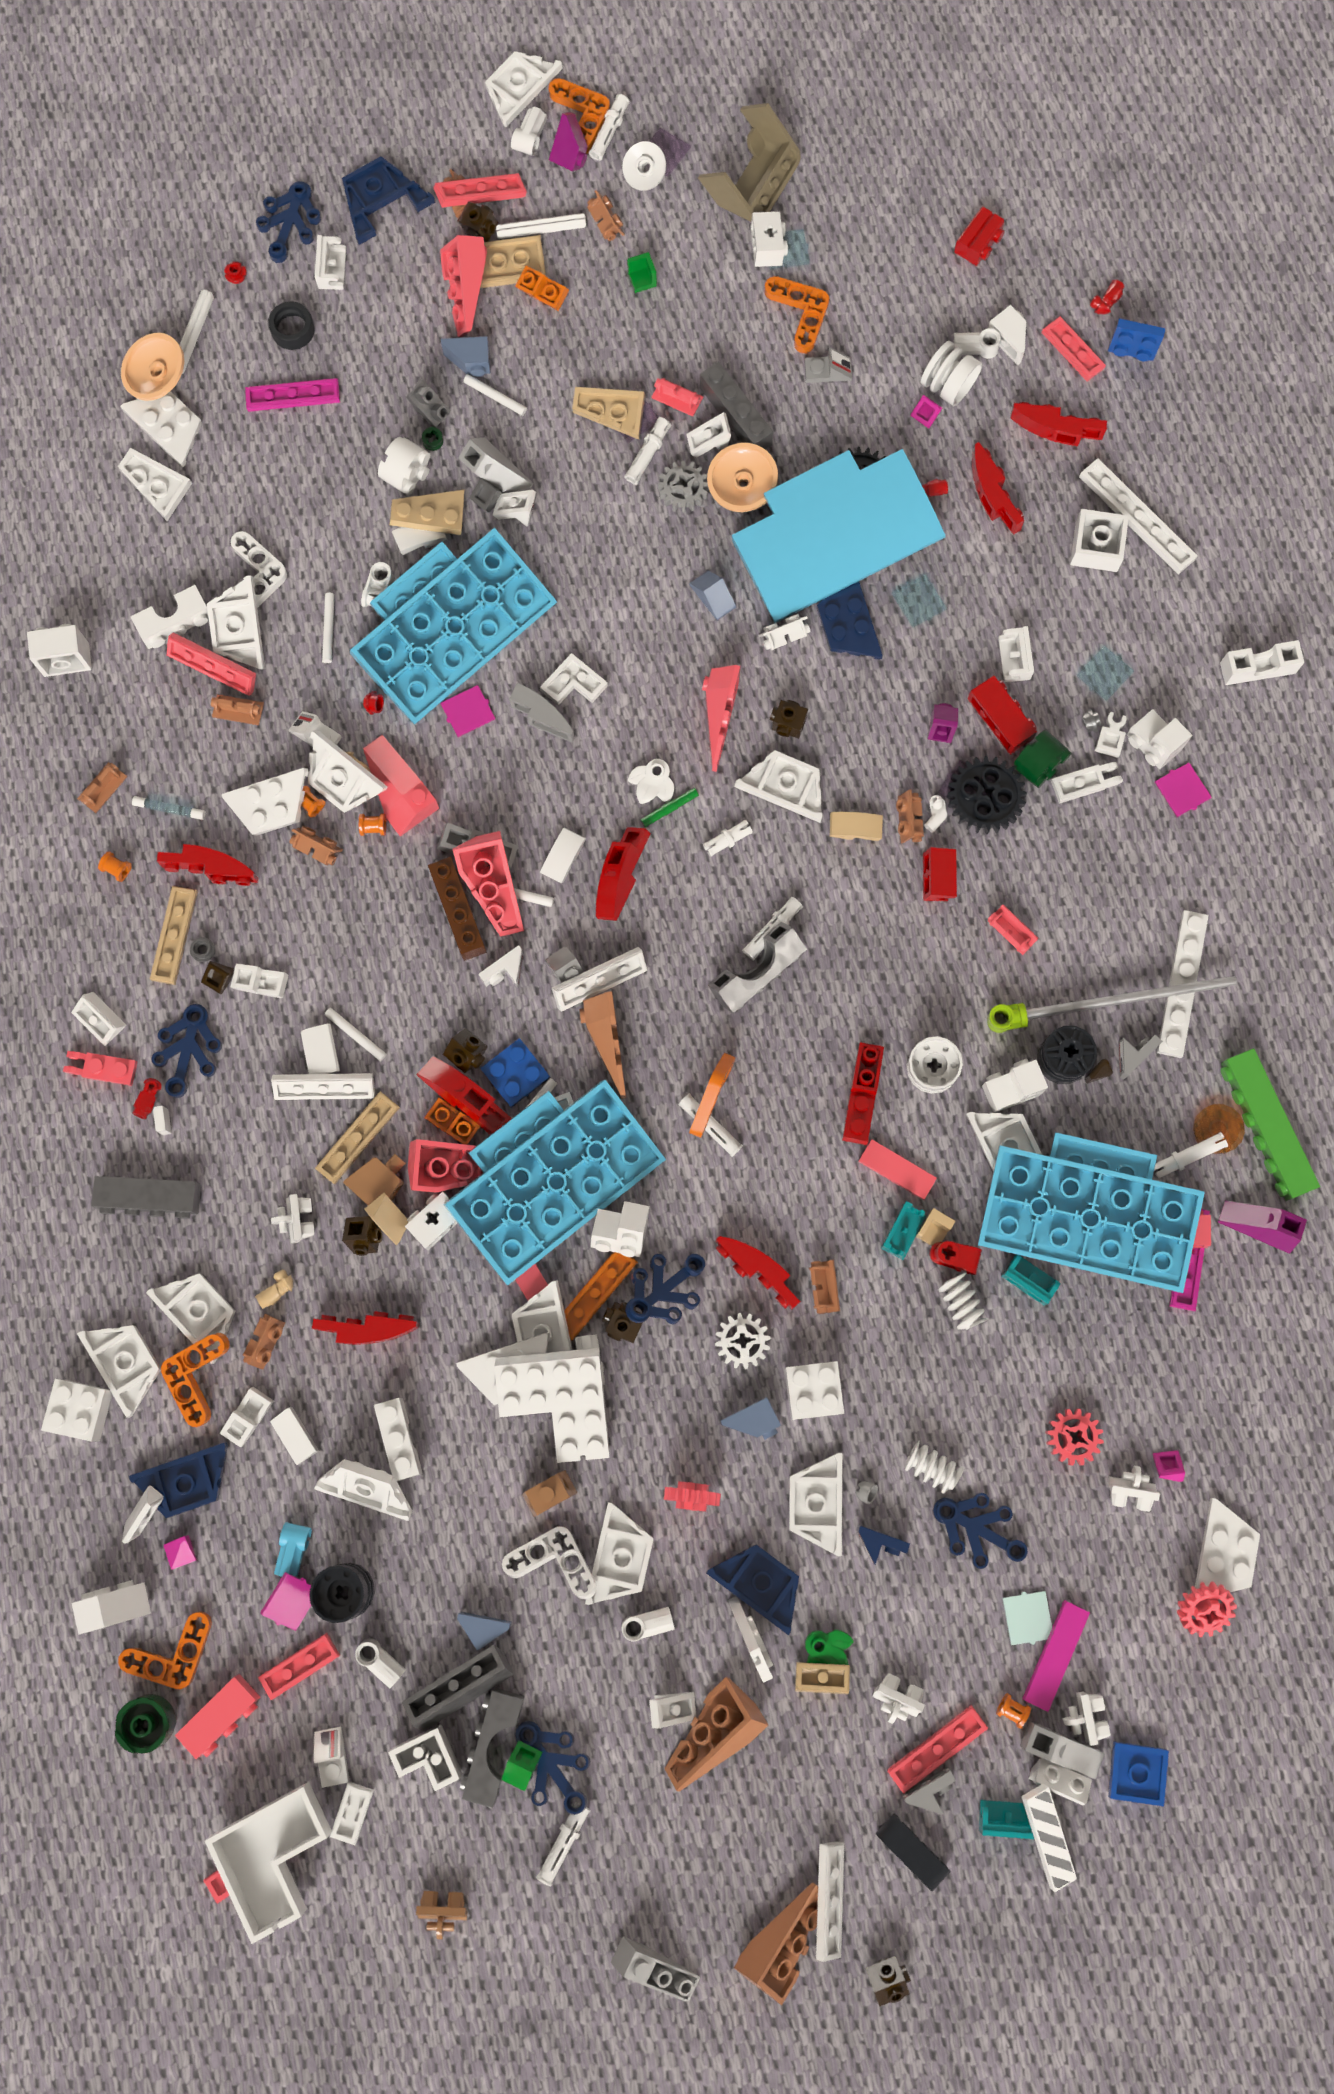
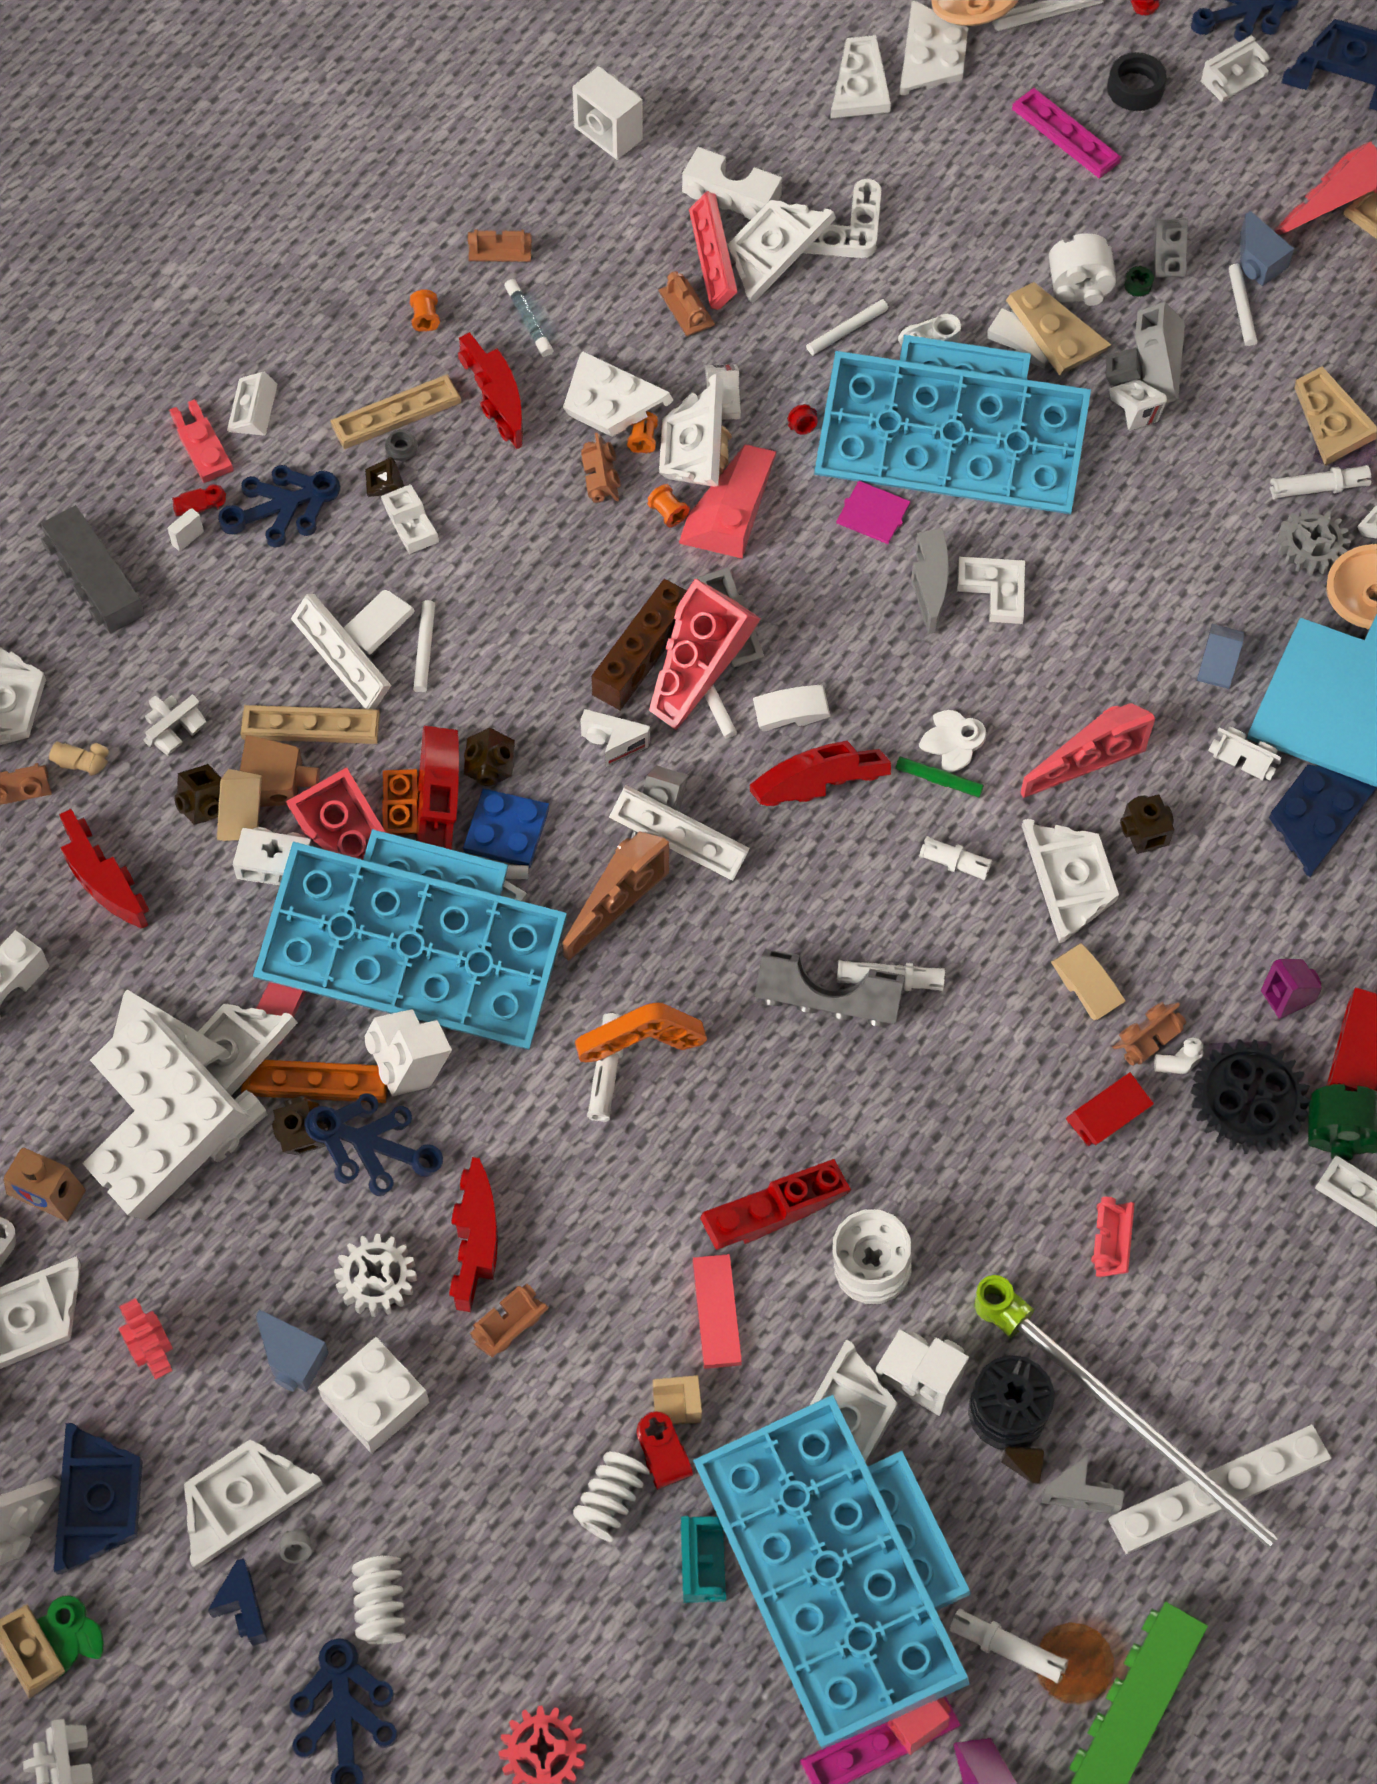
camera: 50 degrees right, 15 degrees down
(904, 1230) = (638, 1364): teal hinge -> none

